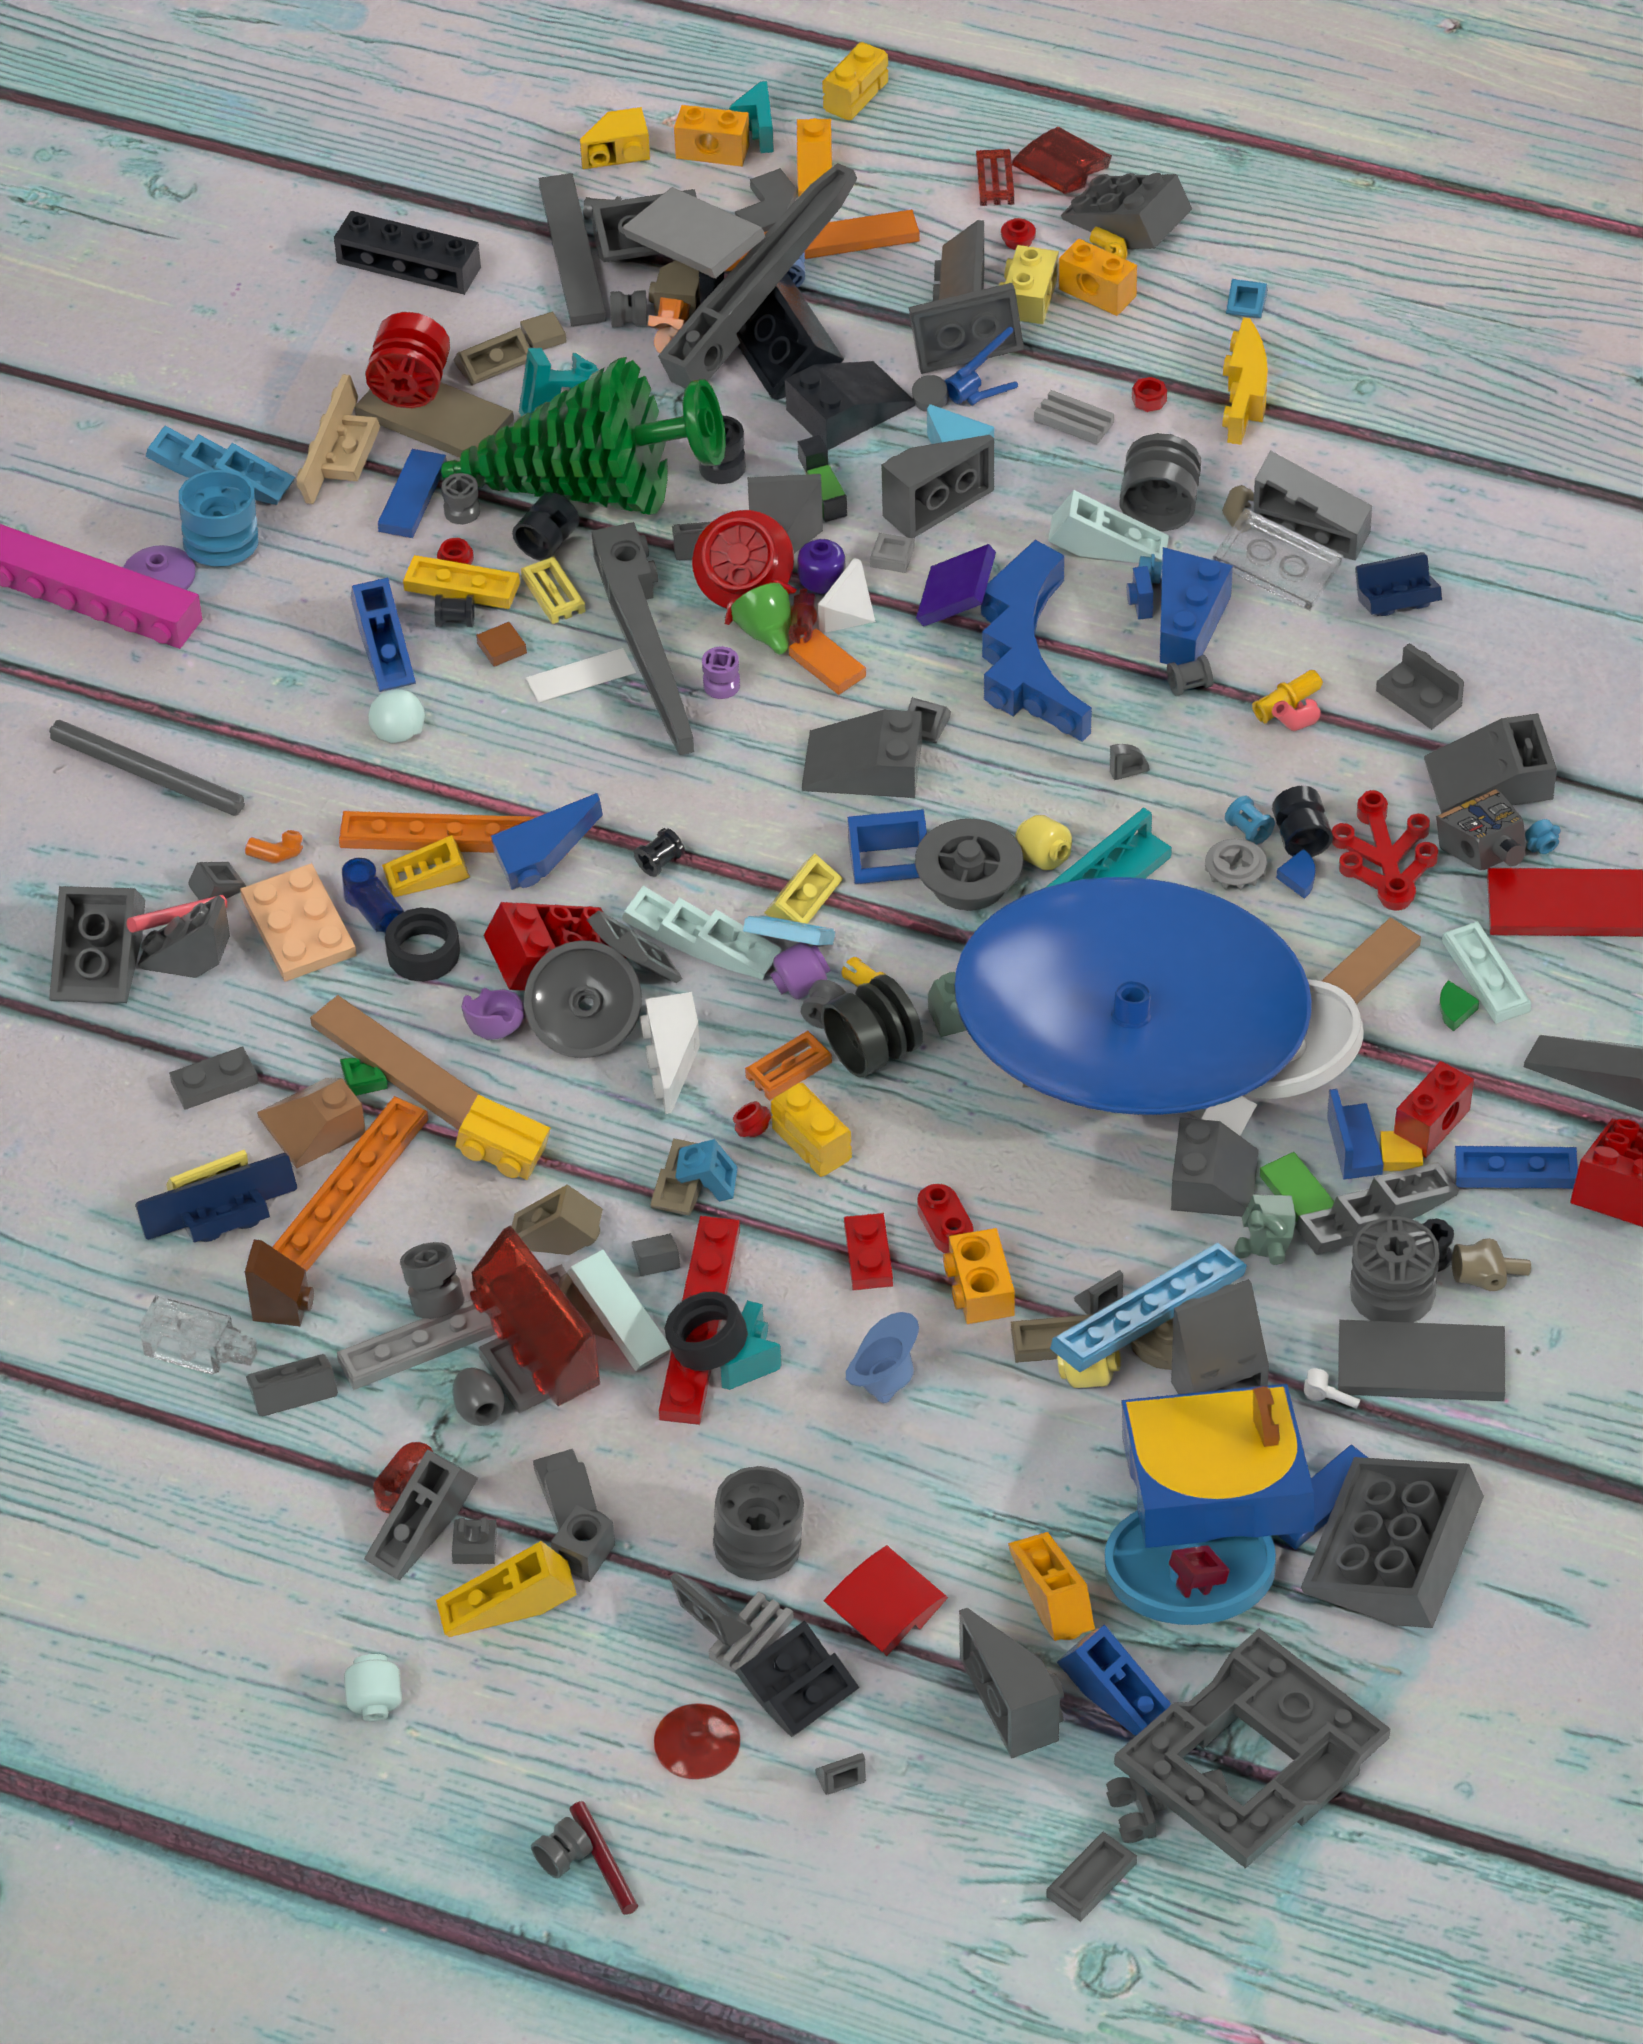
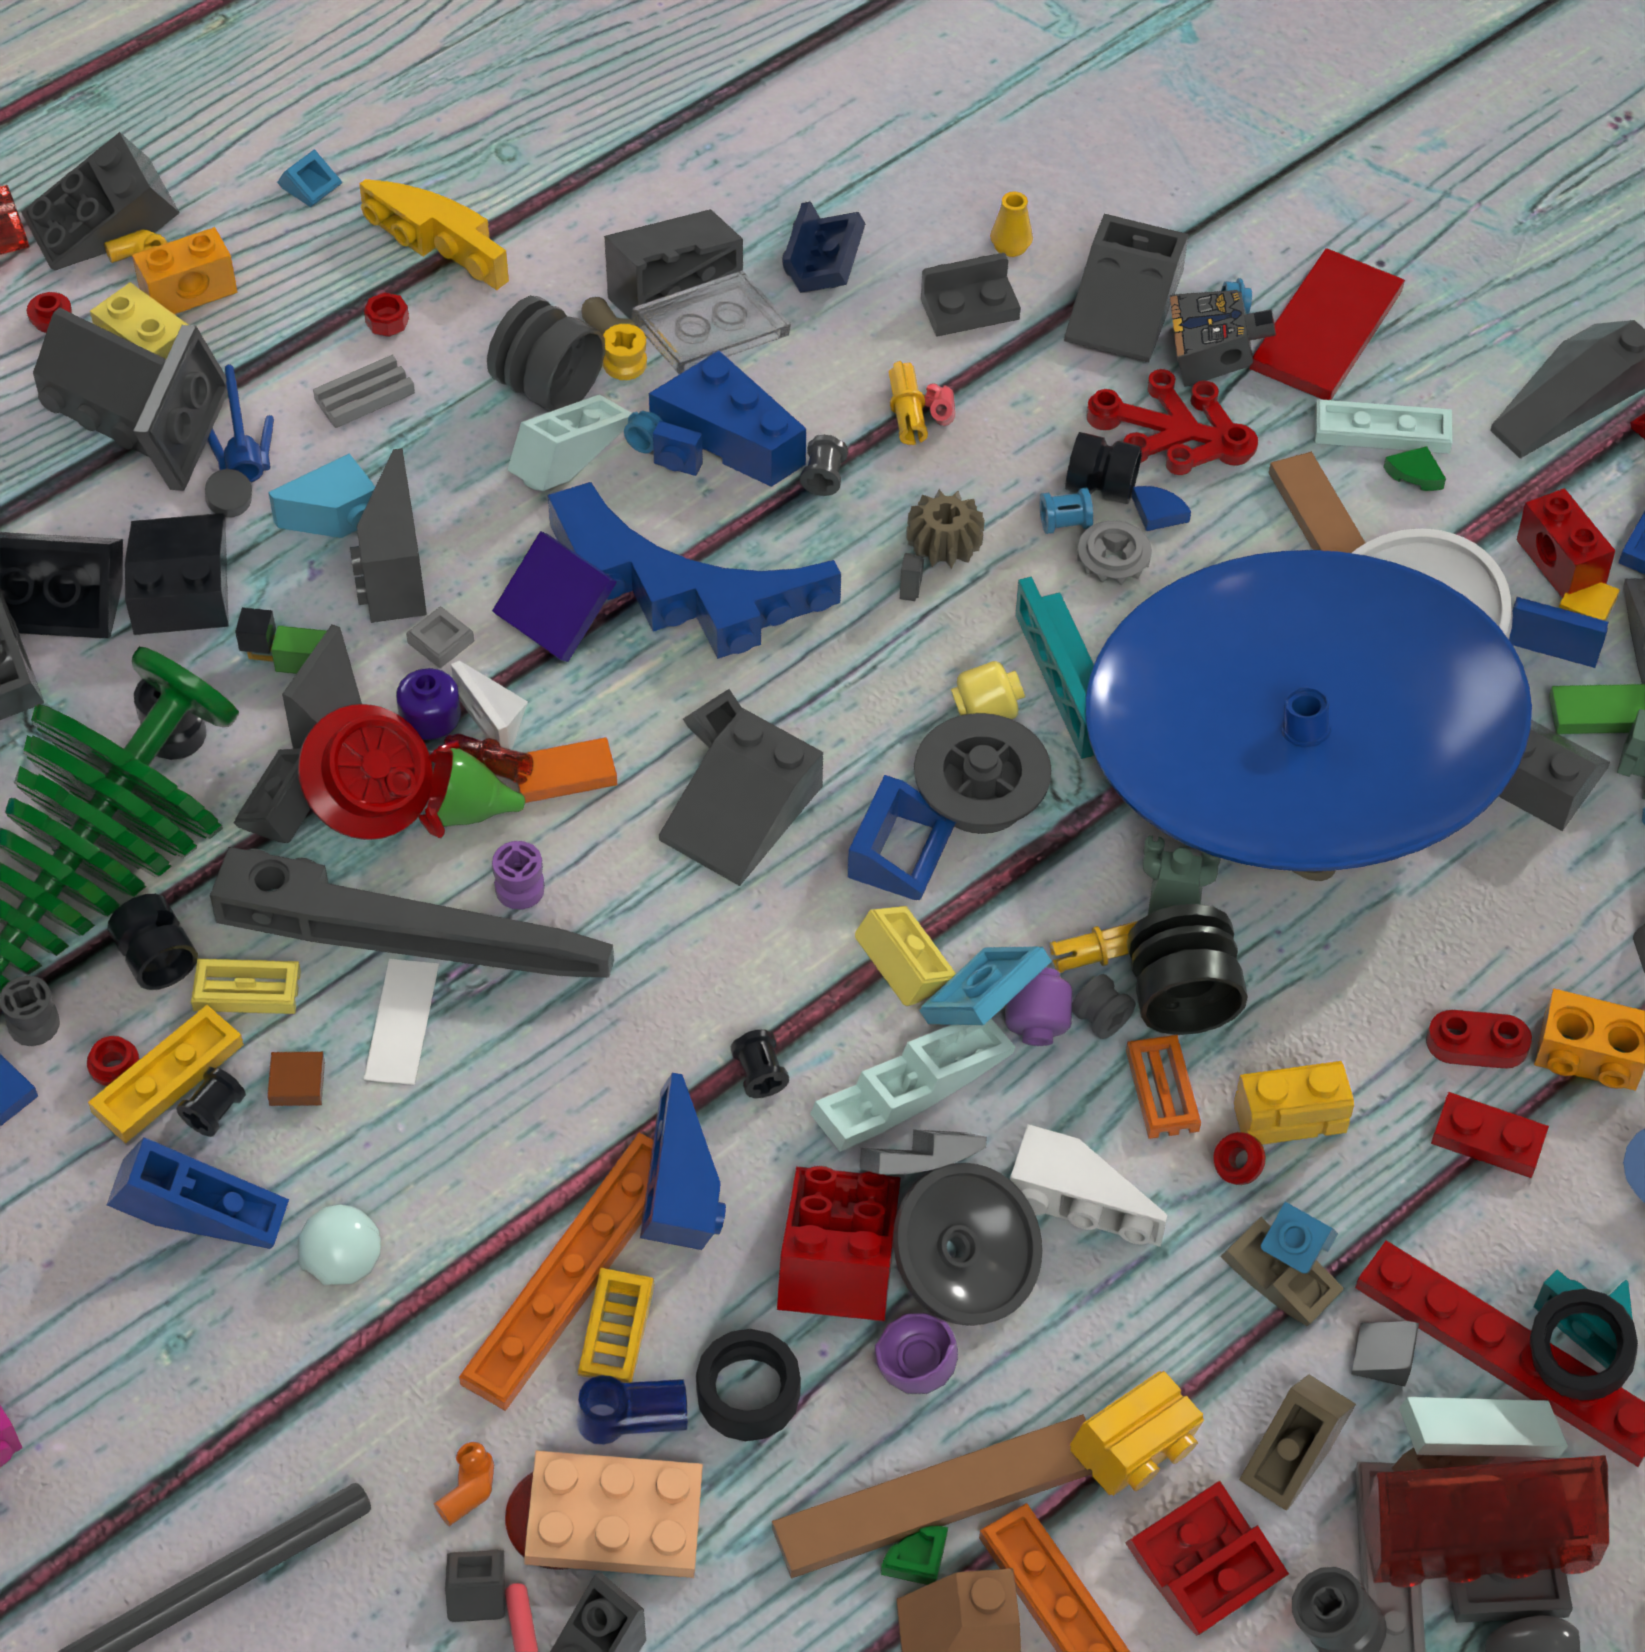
camera: 65 degrees left, 5 degrees up
(447, 1213) = (1207, 1558): none -> red slope
(1179, 761) = (945, 528): none -> dark tan gear
(1212, 527) = (625, 352): none -> yellow wheel
(1507, 682) = (1012, 226): none -> yellow cone

